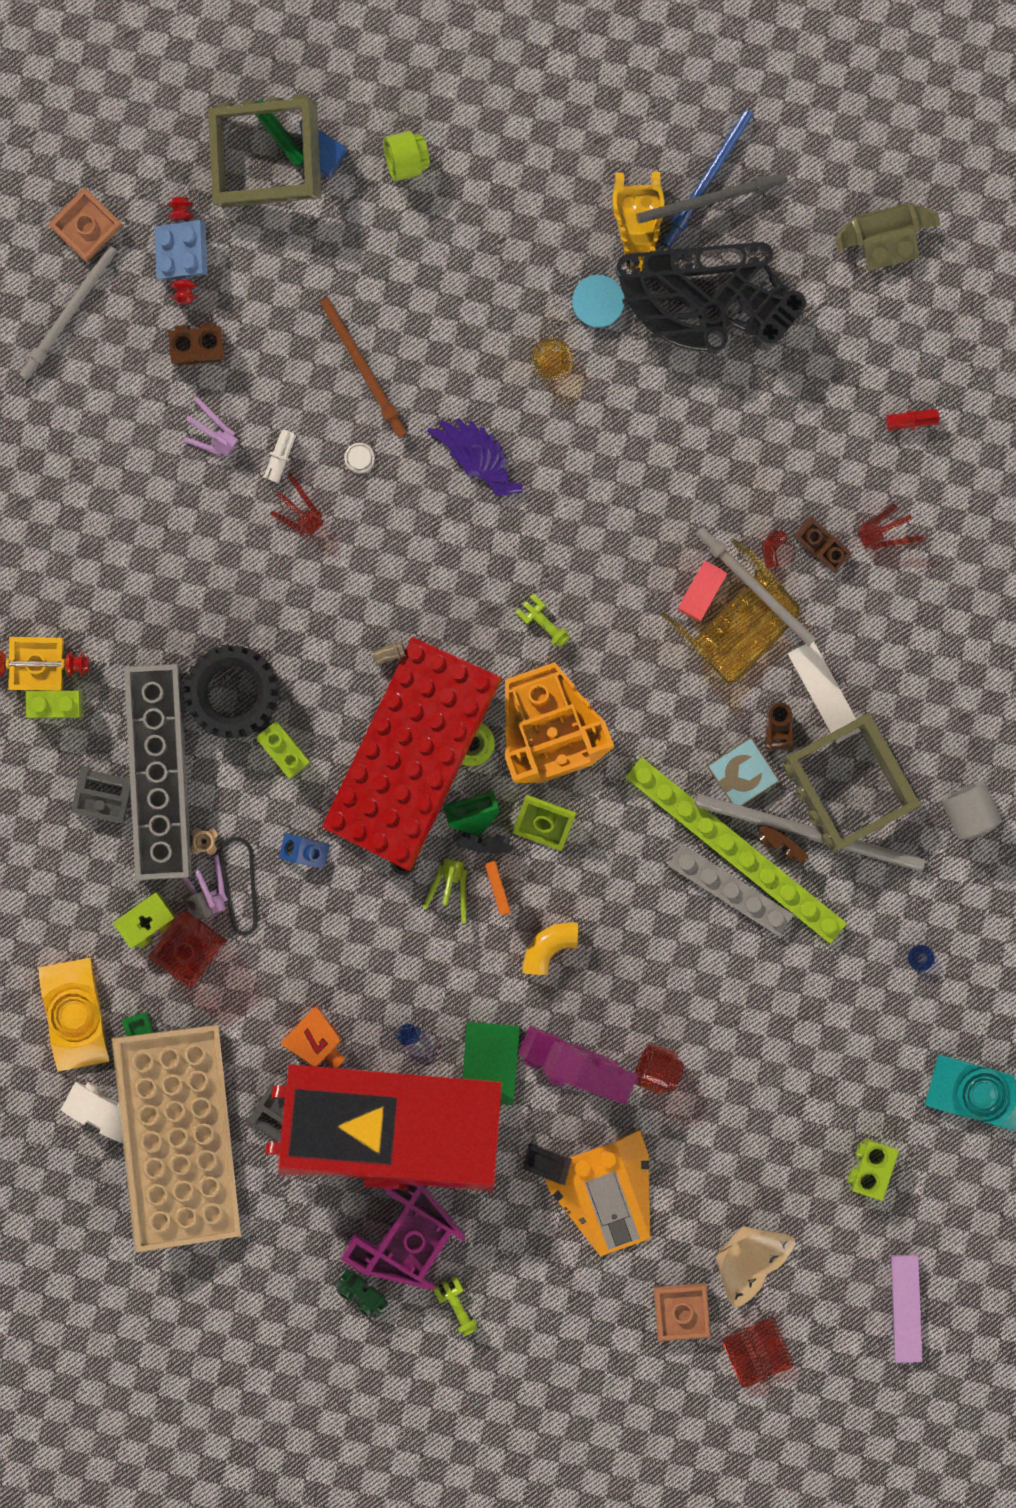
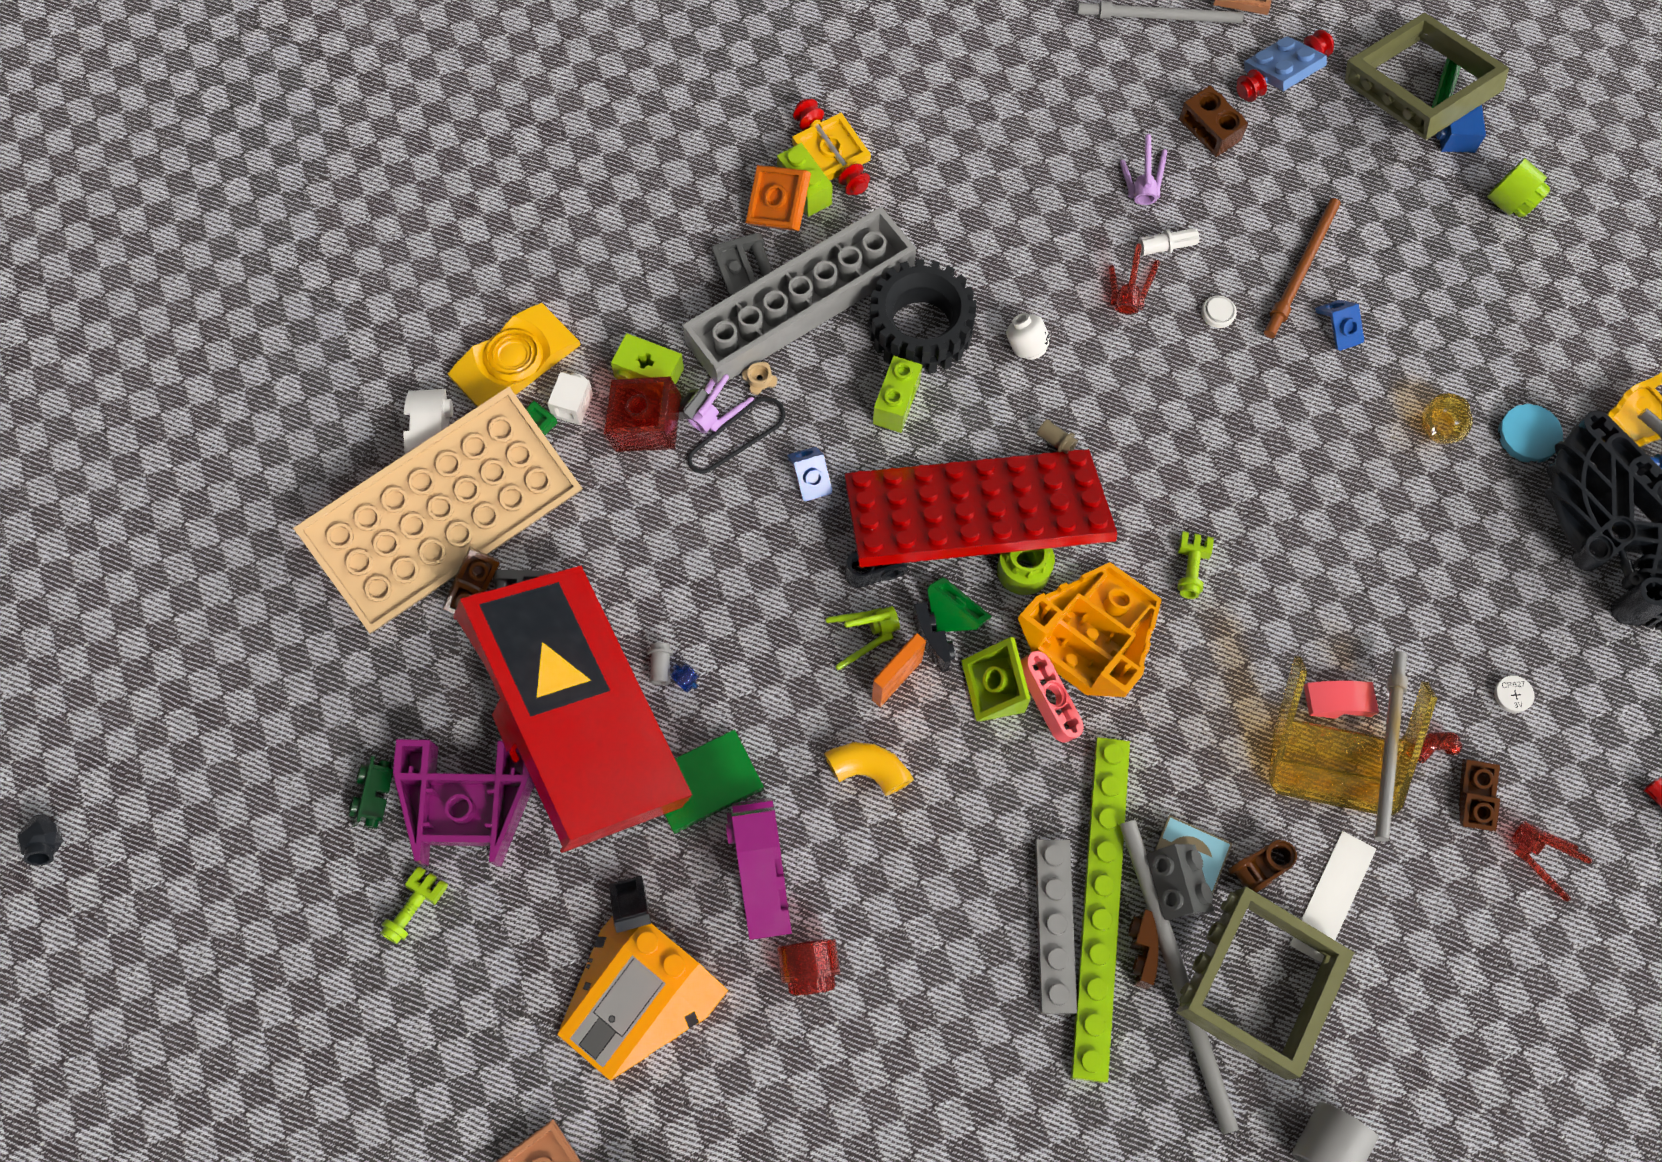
camera: 55 degrees right, 20 degrees down
(62, 738) = (778, 197): none -> orange tile
(137, 991) = (570, 398): none -> white brick
(245, 1145) = (471, 577): none -> reddish brown slope
(296, 622) = (1028, 336): none -> white head
(315, 1039) = (624, 586): orange torso -> none
(387, 1045) = (660, 663): none -> light grey pin
(428, 373) = (1345, 323): none -> blue bracket
(477, 455) = (1302, 411): dark purple animal -> none
(587, 784) = (1063, 701): none -> coral beam
(756, 792) = (1180, 881): none -> dark grey bracket
(772, 466) = (1514, 694): none -> white piece

